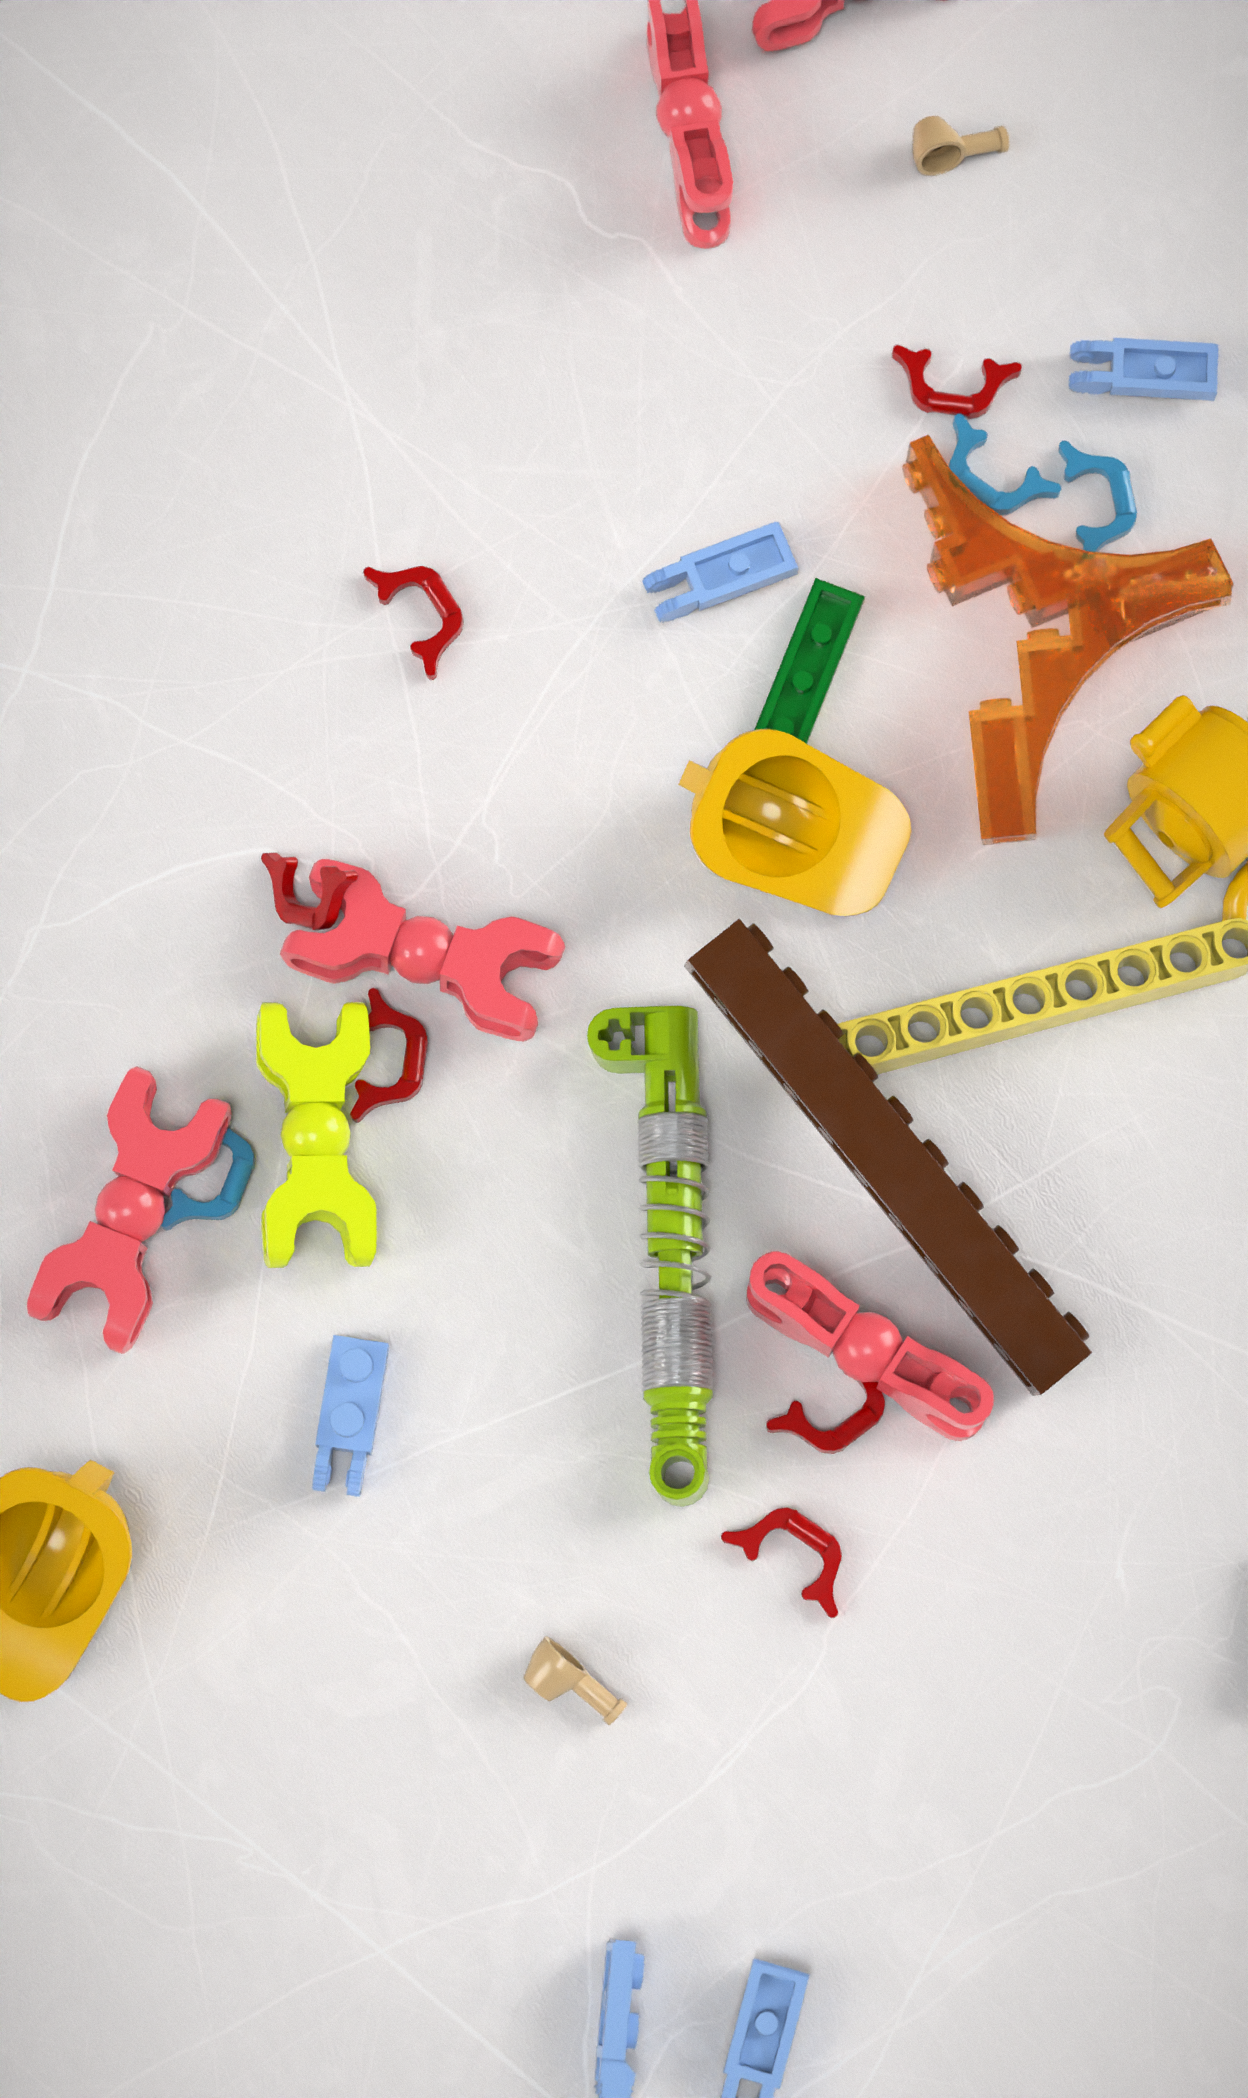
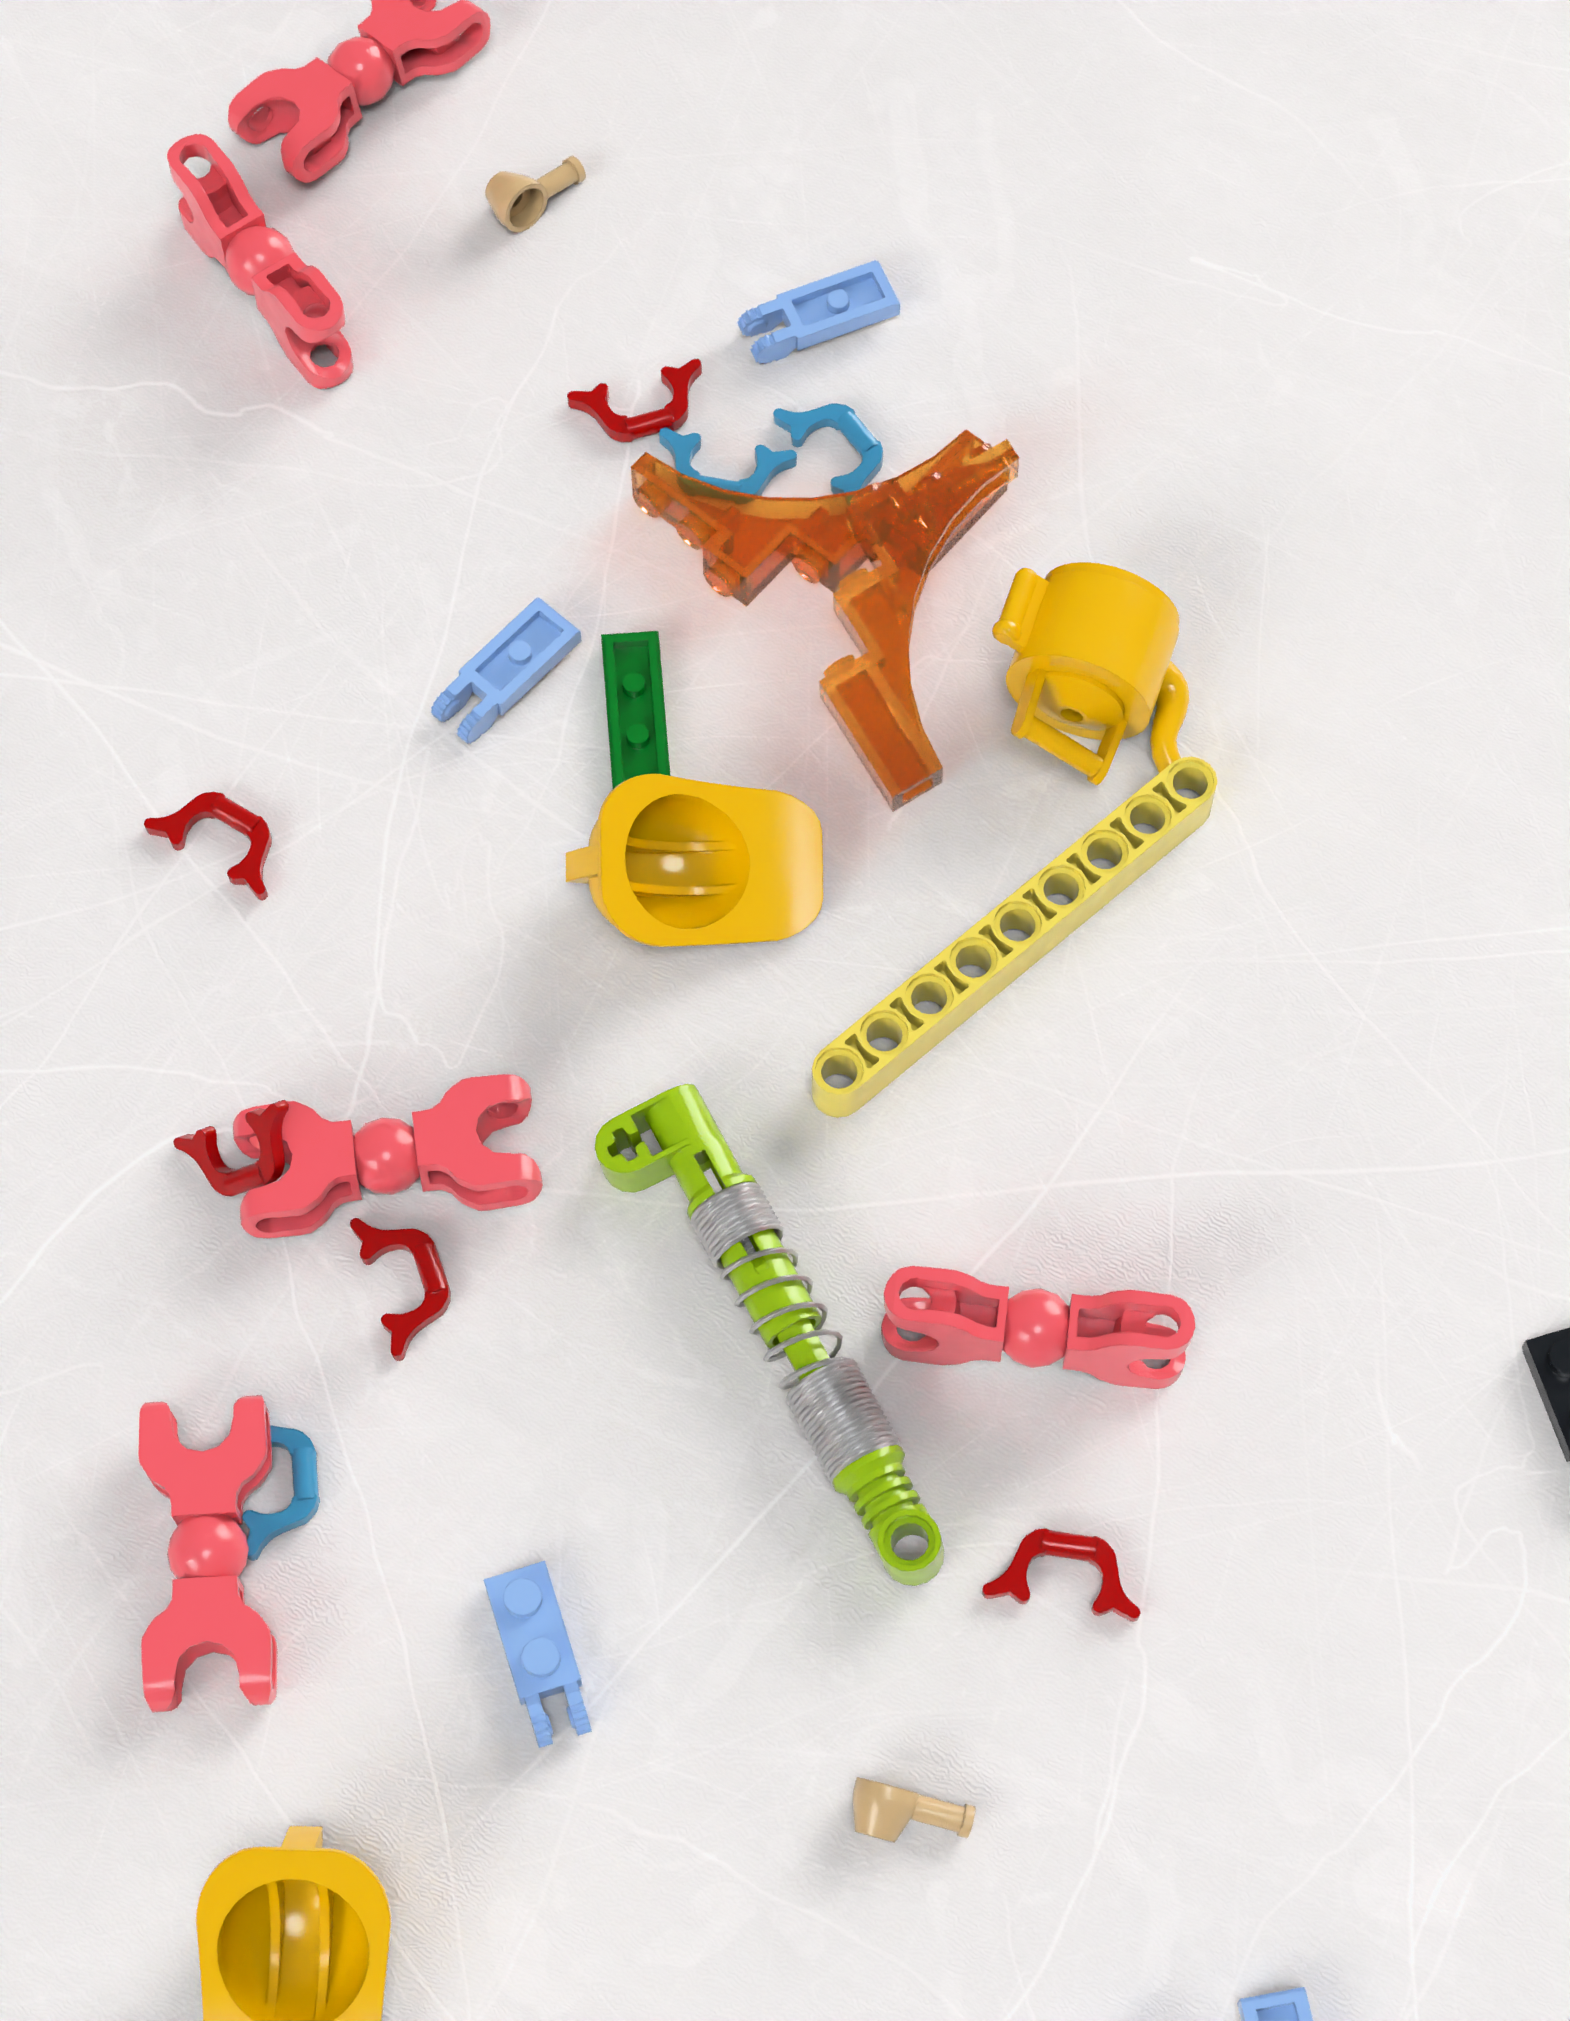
camera: 25 degrees left, 10 degrees down
(315, 1134) = (367, 1387): neon yellow piece -> none
(841, 1436) = (1049, 1440): red helmet -> none
(888, 1158) = (961, 1134): reddish brown brick -> none

